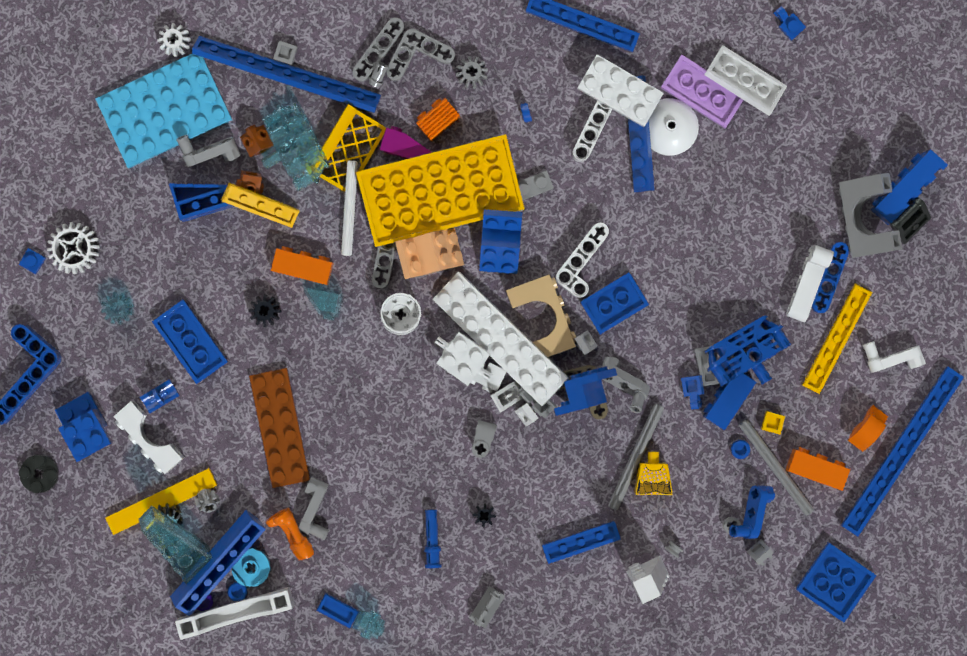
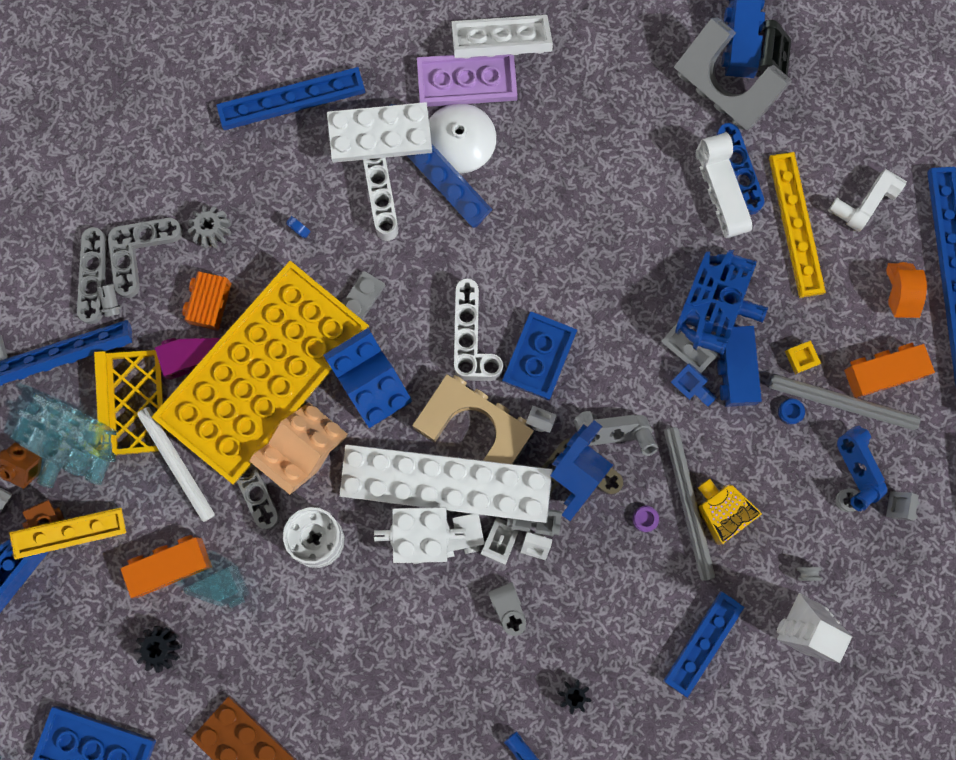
camera: 45 degrees left, 10 degrees down
(603, 446) = (645, 519): none -> medium lavender tile

